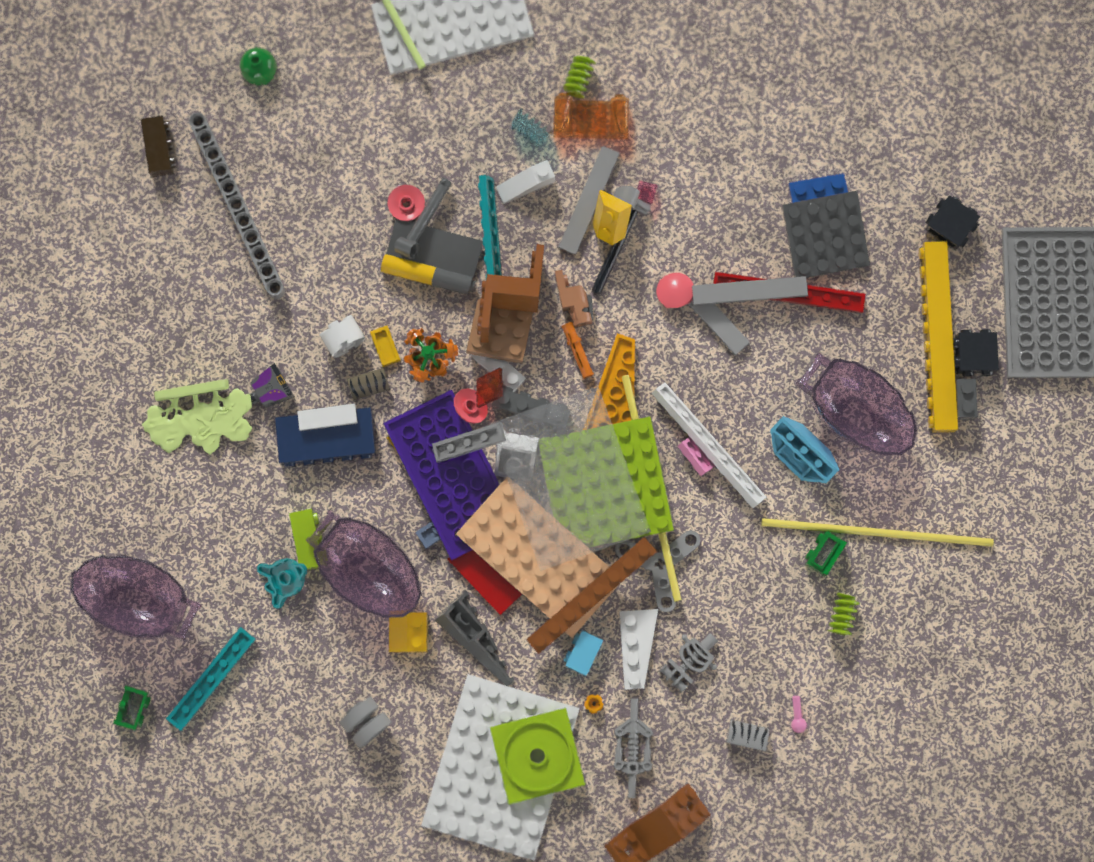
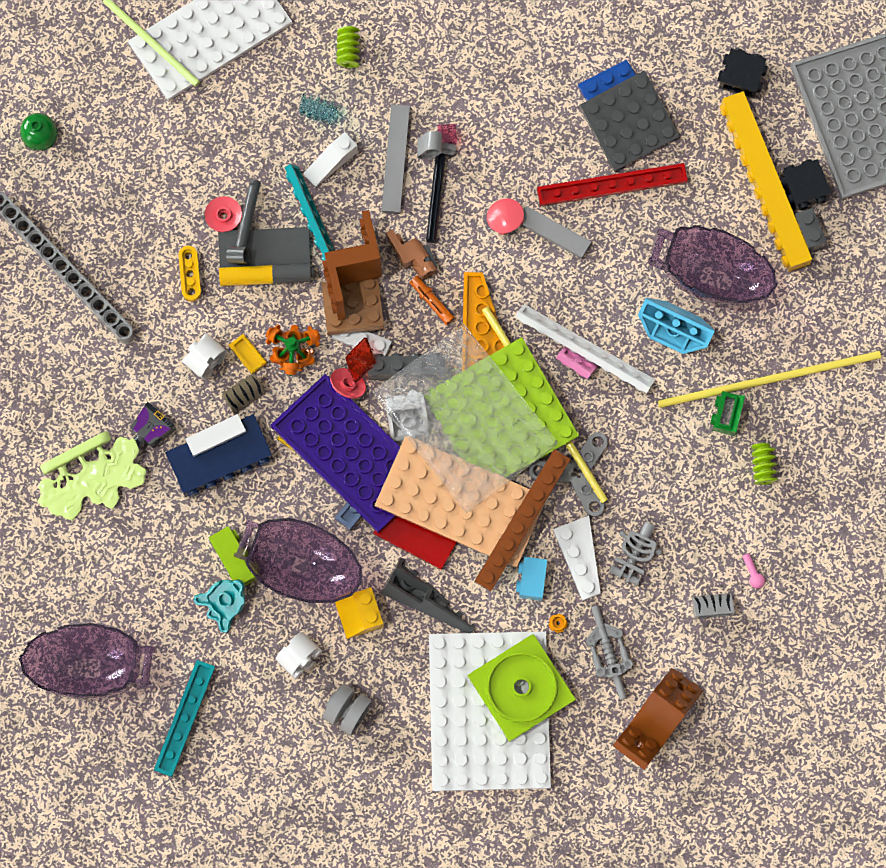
camera: 20 degrees left, 5 degrees down
(132, 707) = (116, 770): green window -> none
(336, 655) = (298, 655): none -> white brick
(359, 242) = (186, 266): none -> yellow plate
(469, 442) = (359, 414): light grey tile -> none
(591, 118) = (372, 82): clear orange piece -> none
(611, 218) = (422, 166): yellow slope -> none
(749, 290) = (575, 194): light grey tile -> none

